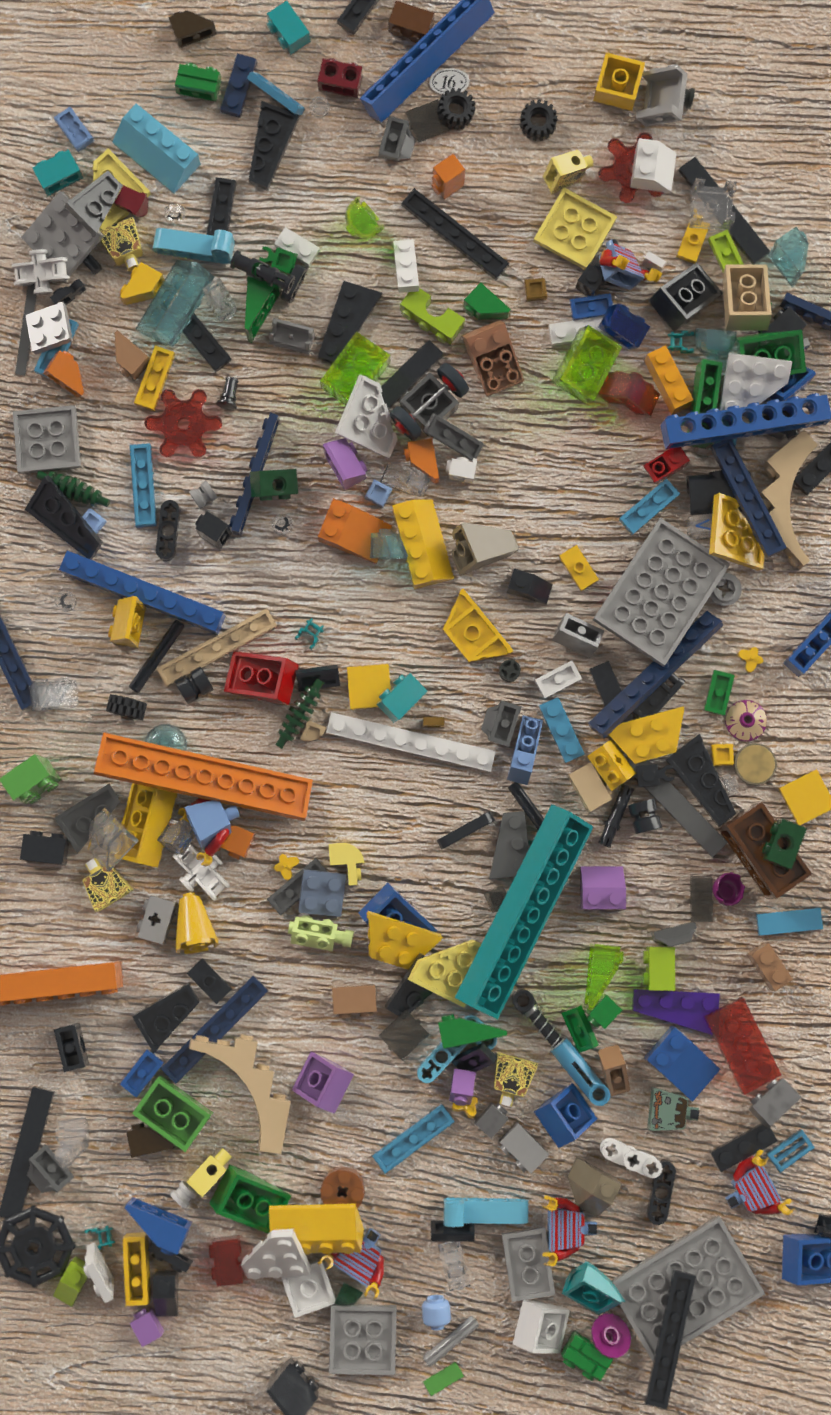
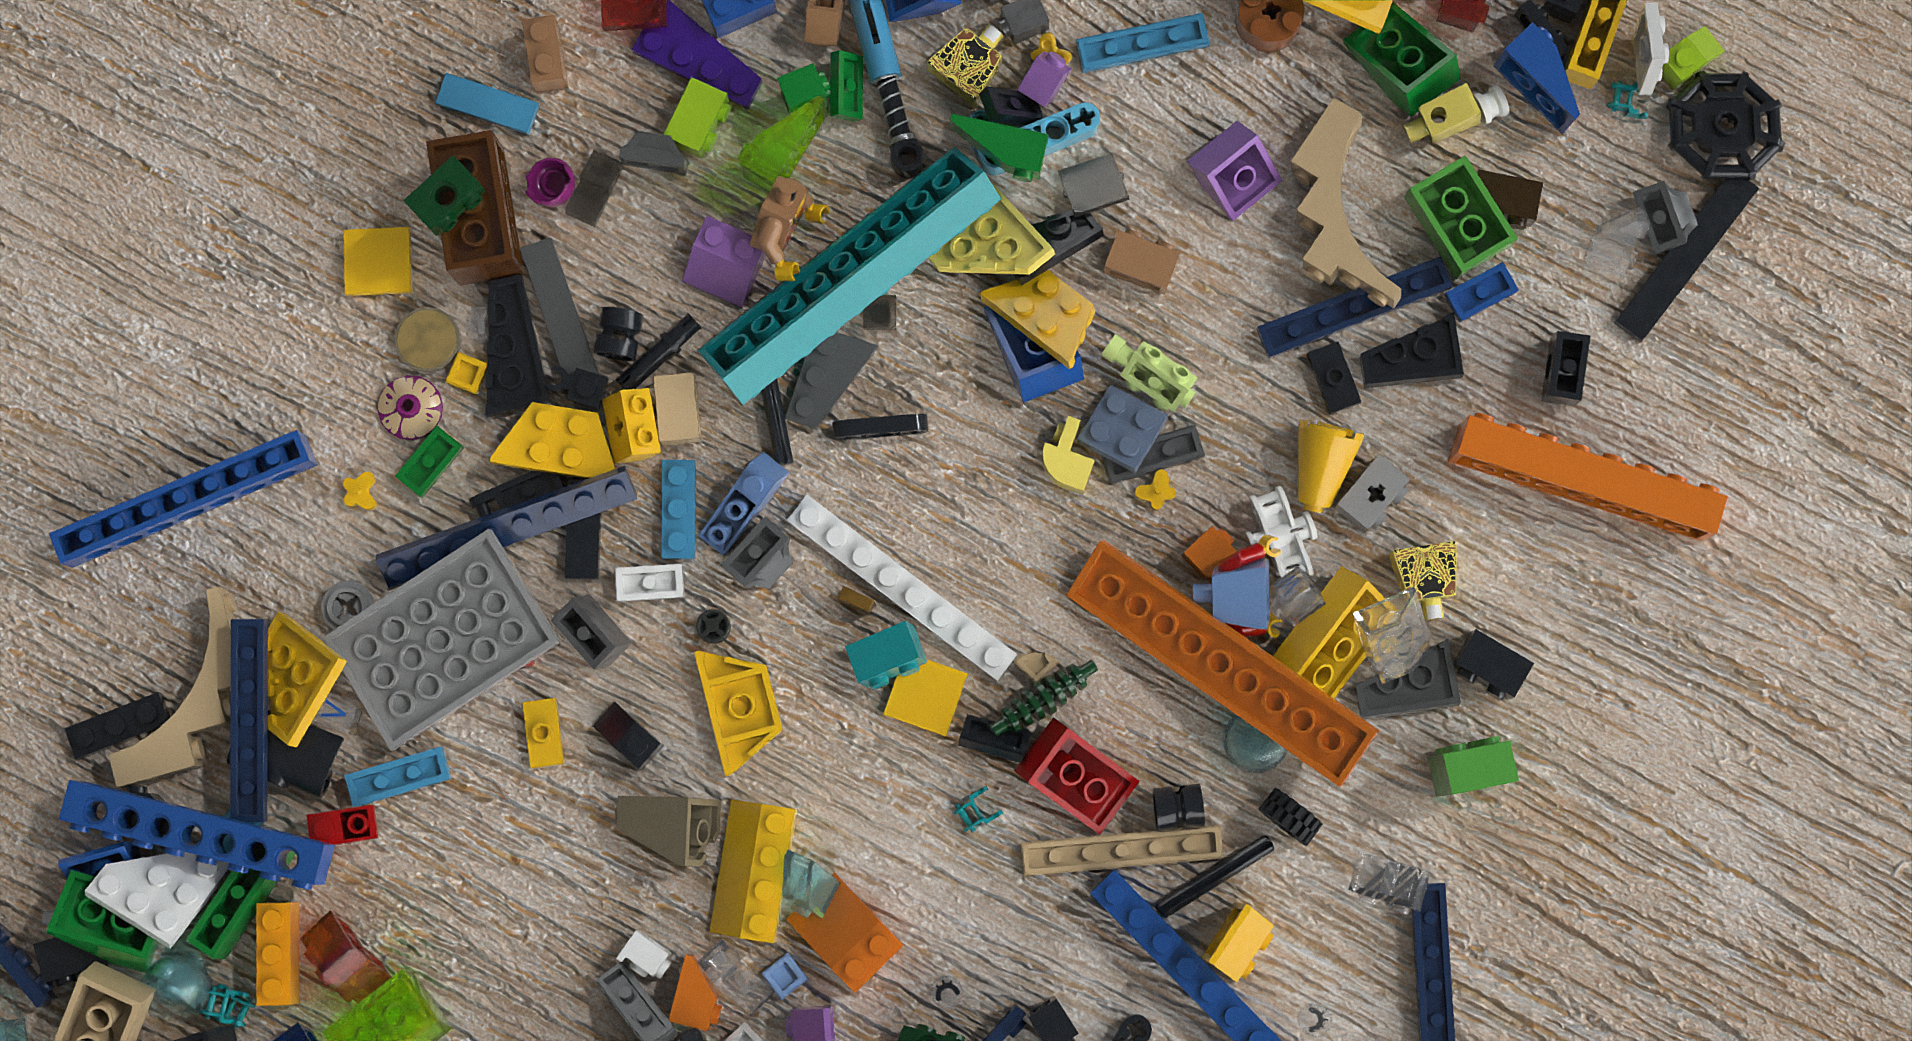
camera: 150 degrees left, 0 degrees up
(581, 924) = (779, 219): none -> medium nougat torso
(682, 333) = (211, 1001): none -> teal piece

